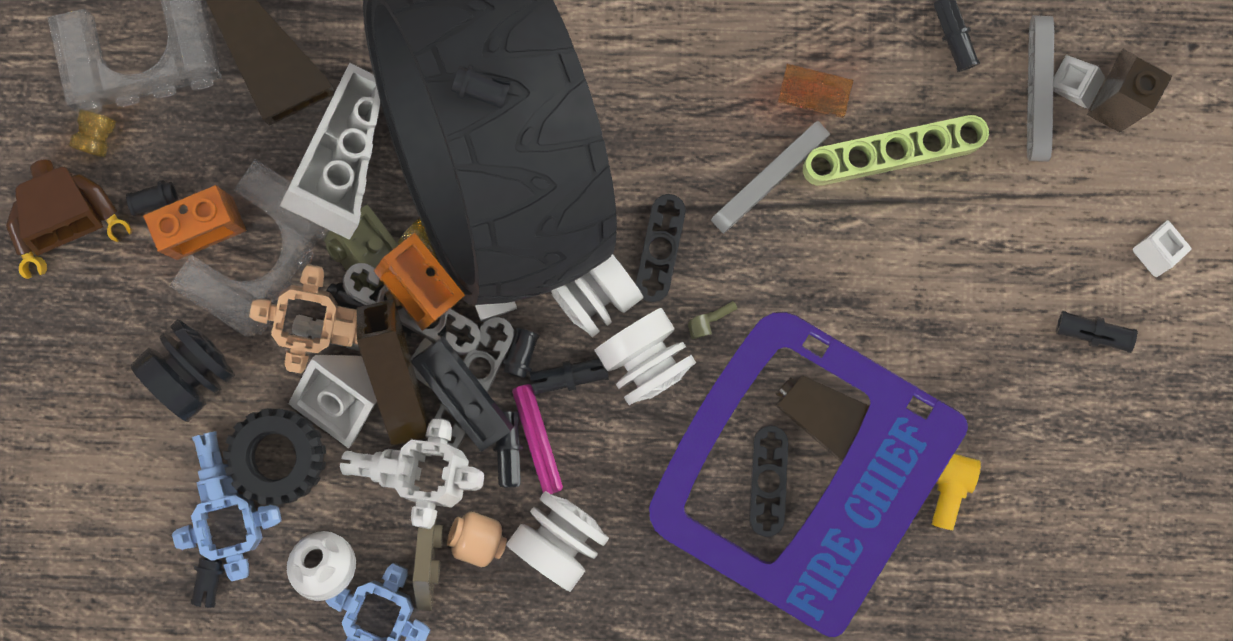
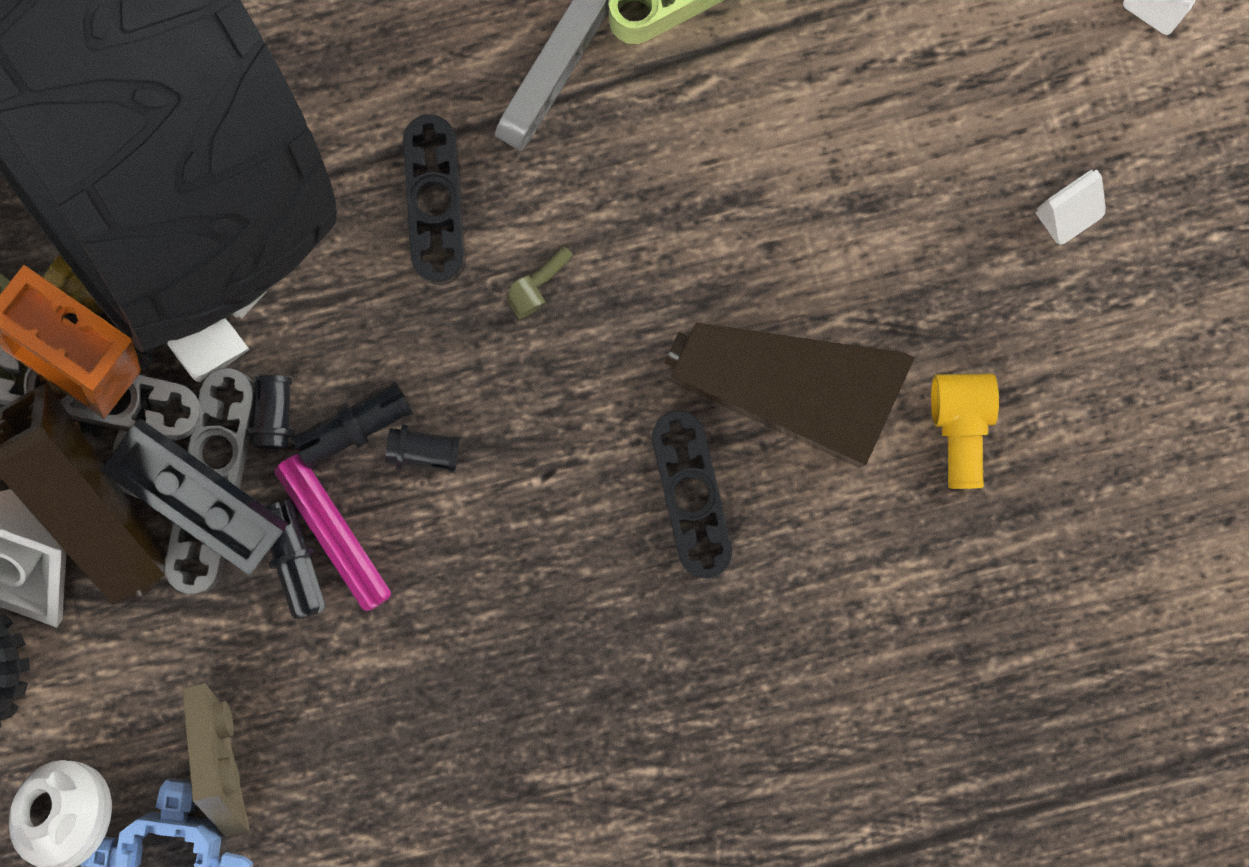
camera: 20 degrees left, 0 degrees up
(400, 470) = (139, 638): white piece -> none
(476, 539) = (282, 707): light nougat head -> none
(557, 541) = (400, 675): white wheel -> none
(594, 291) = (347, 281): white wheel -> none
(607, 404) = (421, 450): none -> black pin
(645, 356) = (447, 356): white wheel -> none
(863, 509) = (843, 489): dark purple door -> none
(1062, 371) = (1074, 207): none -> white slope
(1096, 331) = (1107, 136): black pin -> none

